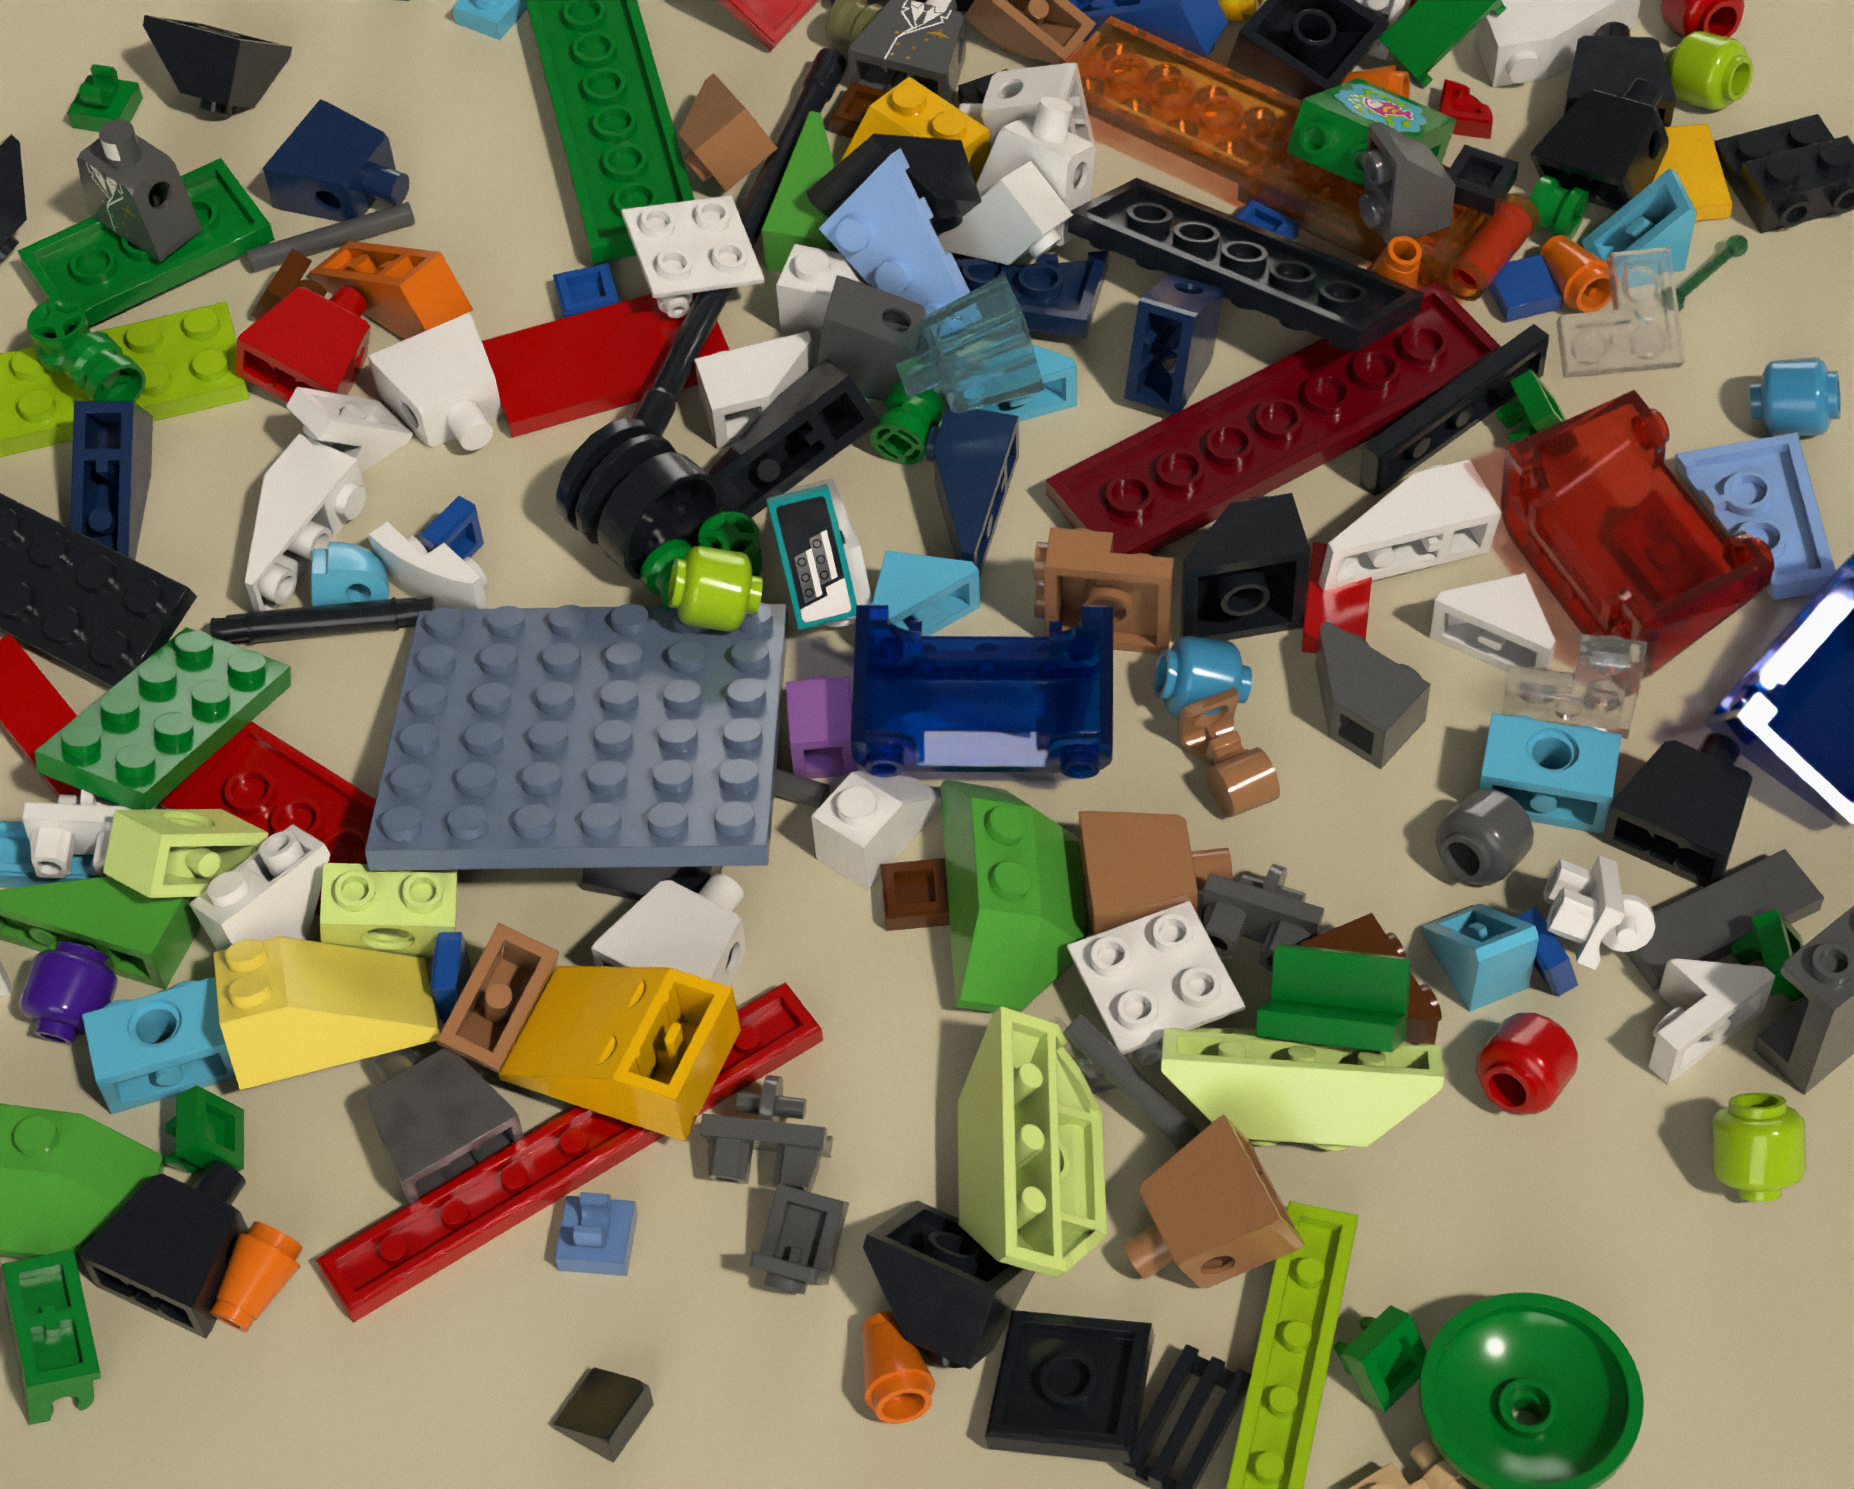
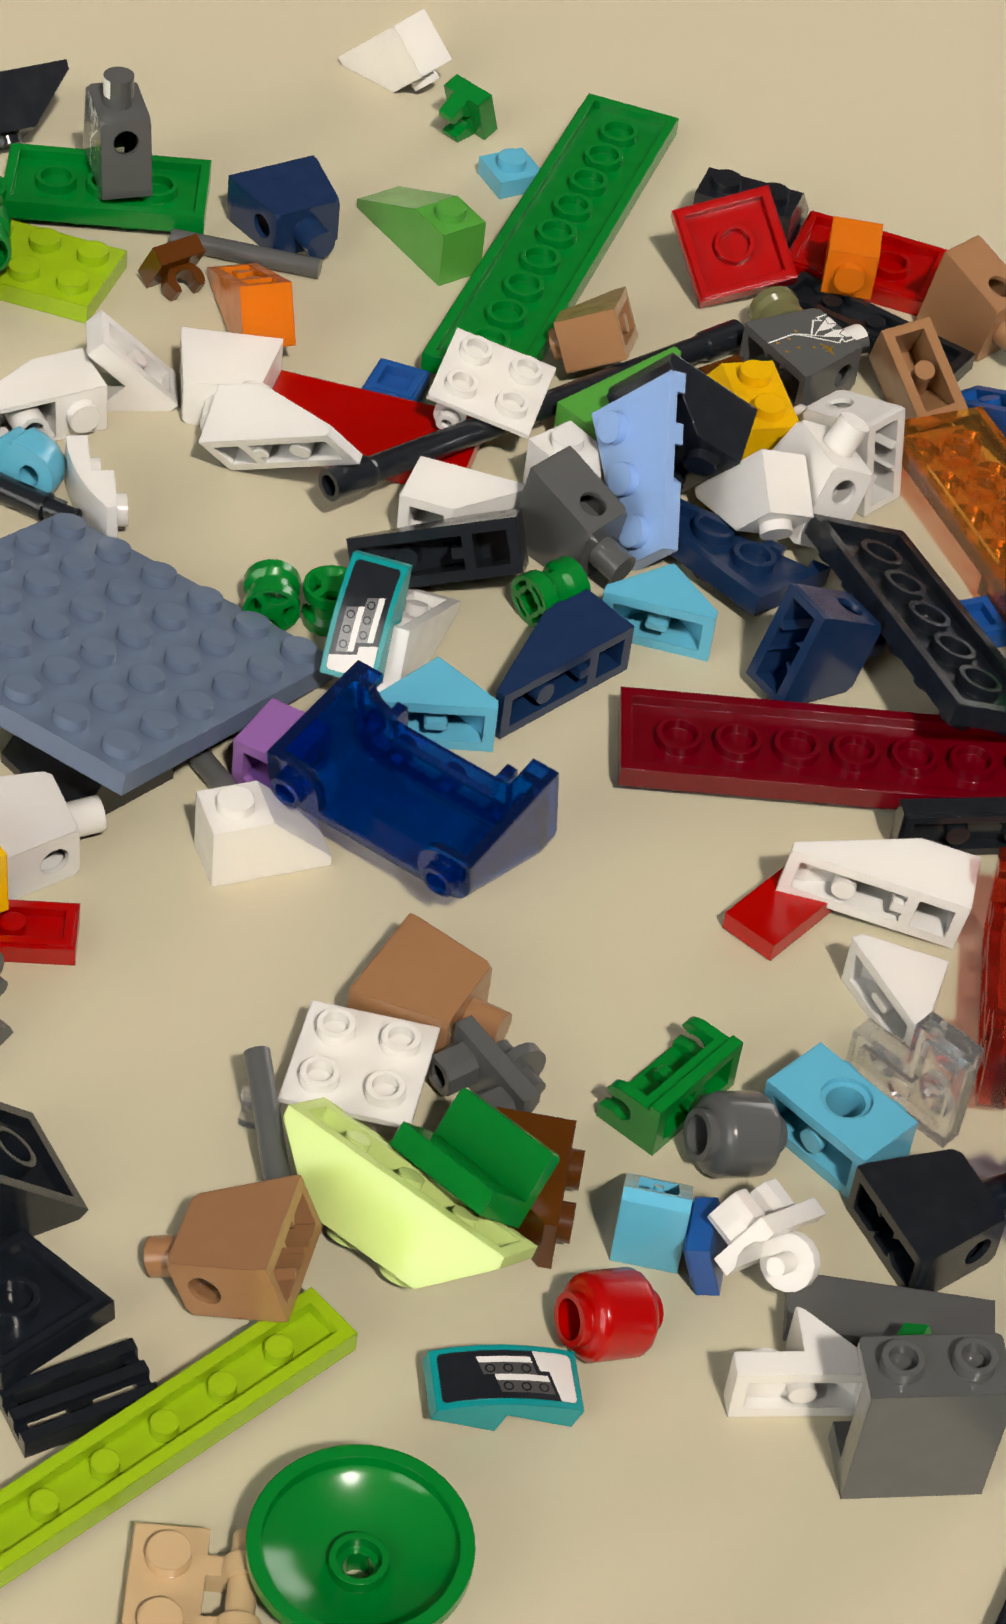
camera: 25 degrees right, 10 degrees down
(104, 99) = (171, 91): green tile -> none
(216, 62) = (269, 103): black slope -> none
(306, 344) = (151, 298): red torso -> none
(457, 528) = (136, 474): blue tile -> none
(474, 110) = (430, 228): none -> bright green slope
(535, 417) = (263, 430): none -> white slope
(634, 493) = (284, 508): black wheel -> none
(714, 588) = (276, 603): lime head -> none
(915, 894) = (242, 908): reddish brown tile -> none
(975, 351) = (629, 553): clear light blue torso -> none
(1009, 896) = (302, 947): bright green wedge -> none
(1030, 1149) = (146, 1124): yellowish green wedge -> none
(1085, 572) = (594, 780): medium nougat plate -> none
(1197, 670) = (611, 889): dark azure head -> none
(1238, 776) = (579, 970): medium nougat leg -> none
(1247, 572) = (707, 828): black slope -> none
(1366, 696) = (737, 979): dark grey slope -> none
(1384, 1357) = (272, 1442): green tile -> none
(1393, 825) = (659, 1098): none -> green hinge
(1494, 1180) = (488, 1382): none -> slope
(1758, 1146) = (745, 1494): lime head -> none

